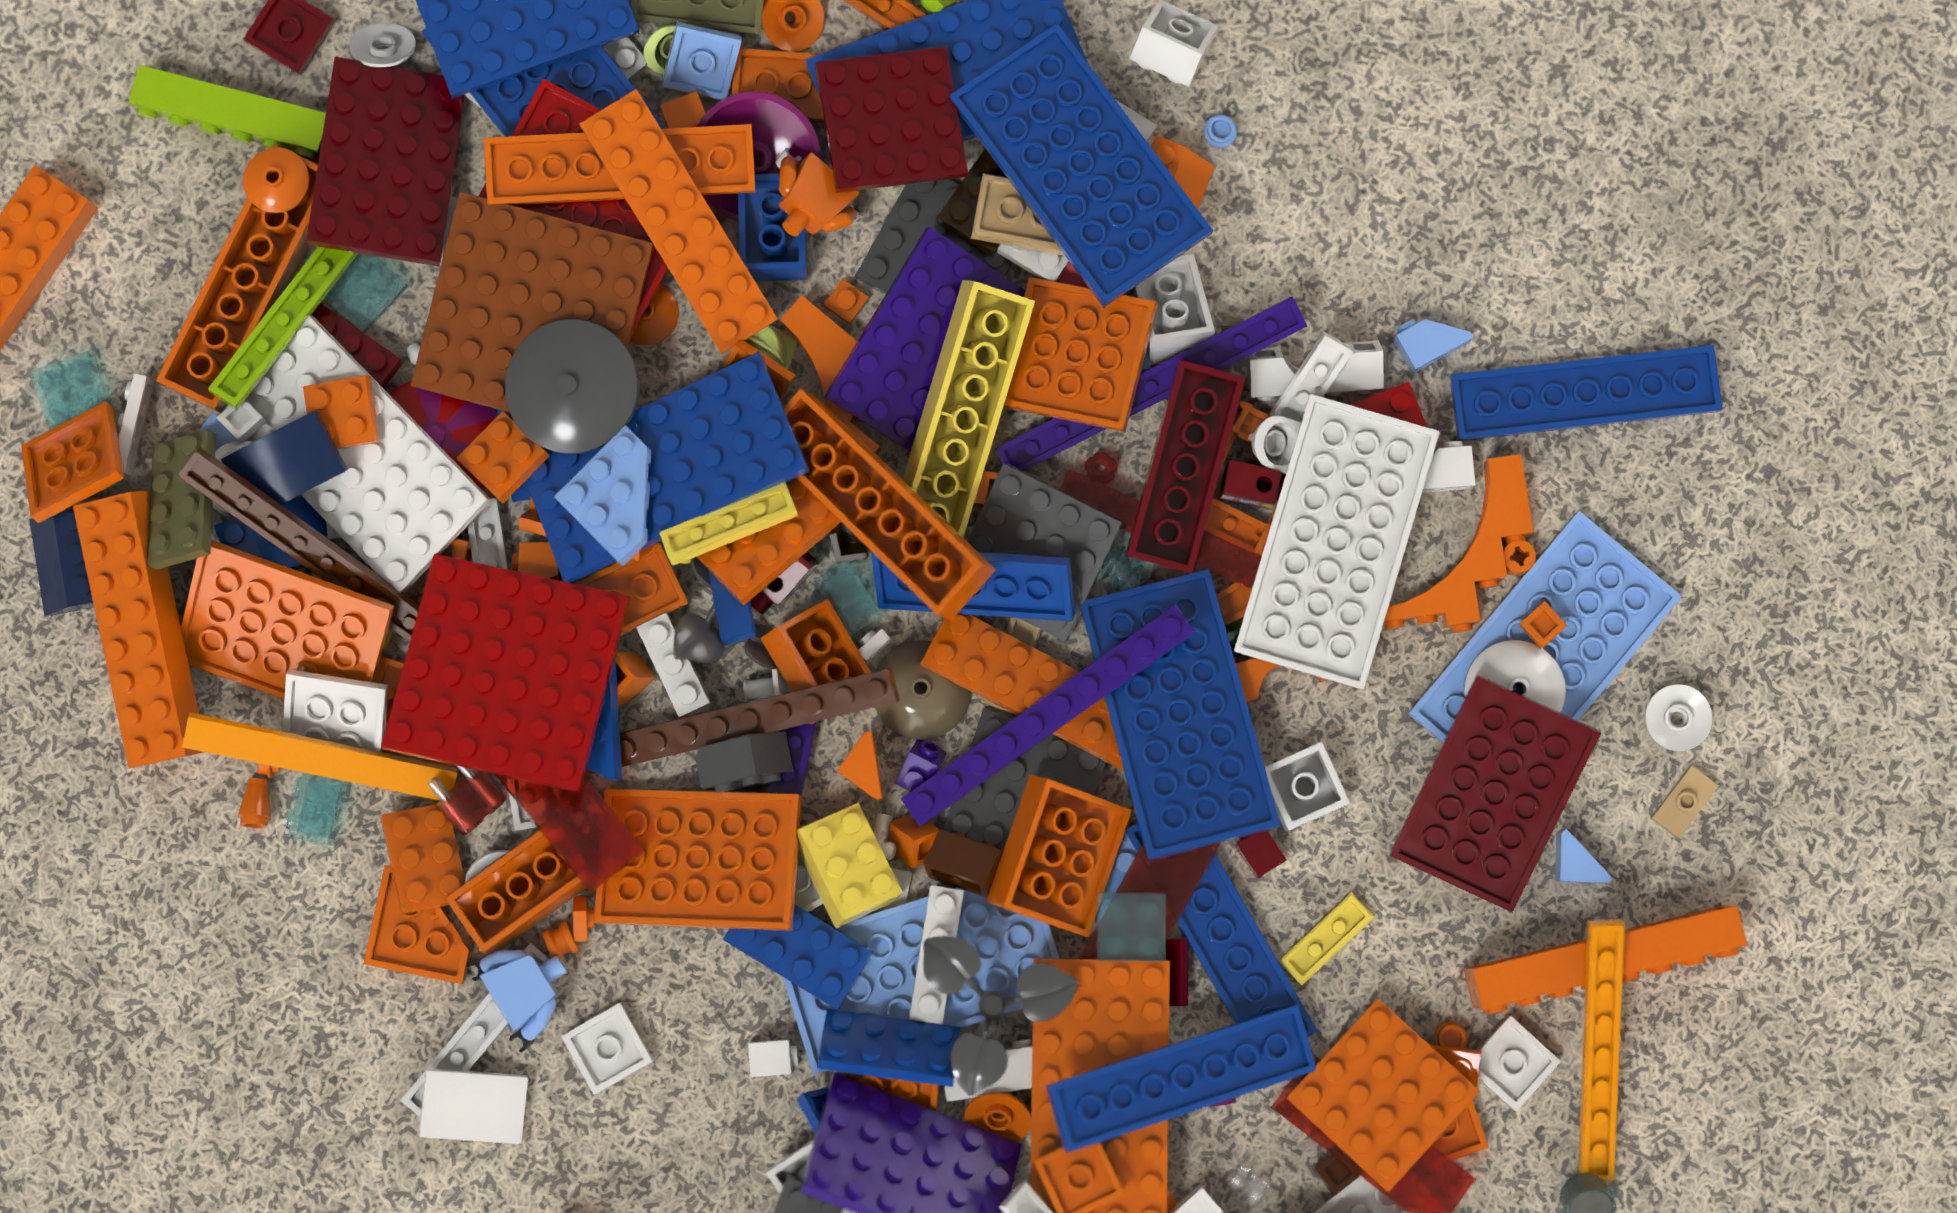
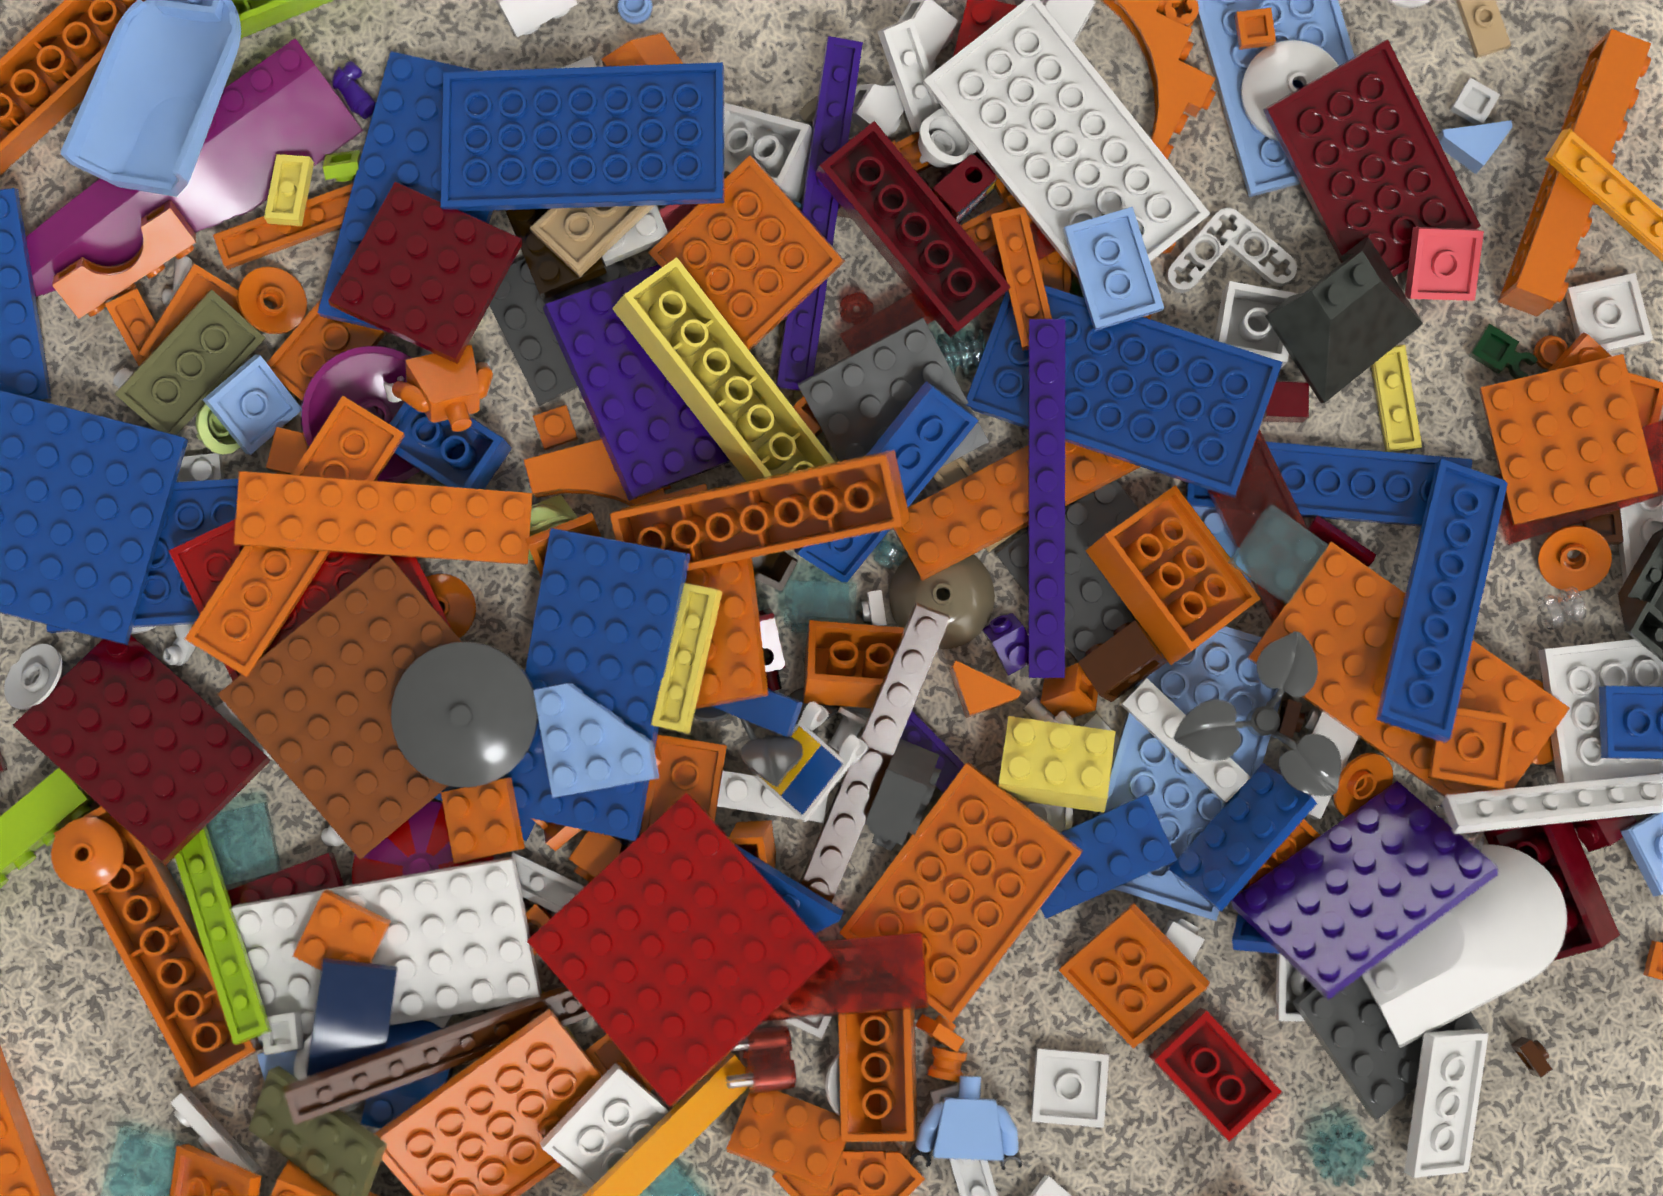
camera: 60 degrees left, 0 degrees up
(474, 139) = (181, 649): none -> white arm
(692, 1153) = (1215, 1074): none -> red brick
(716, 682) = (818, 768): none -> flag
(725, 1038) = (1134, 976): none -> orange plate
(924, 625) = (888, 554): none -> clear light blue plate
(1011, 1026) = (1290, 718): none -> reddish brown plate
(1215, 572) = (1021, 269): none -> orange plate
(1263, 643) = (1113, 268): none -> light blue plate
(1286, 1176) = (1582, 571): none -> orange dish
(1356, 855) = (1344, 321): none -> pearl dark grey slope
(1363, 727) = (1235, 242): none -> white beam
(1421, 992) = (1497, 350): none -> dark green plate
(1459, 903) = (1444, 263): none -> coral plate
(1611, 841) = (1475, 102): none -> white plate

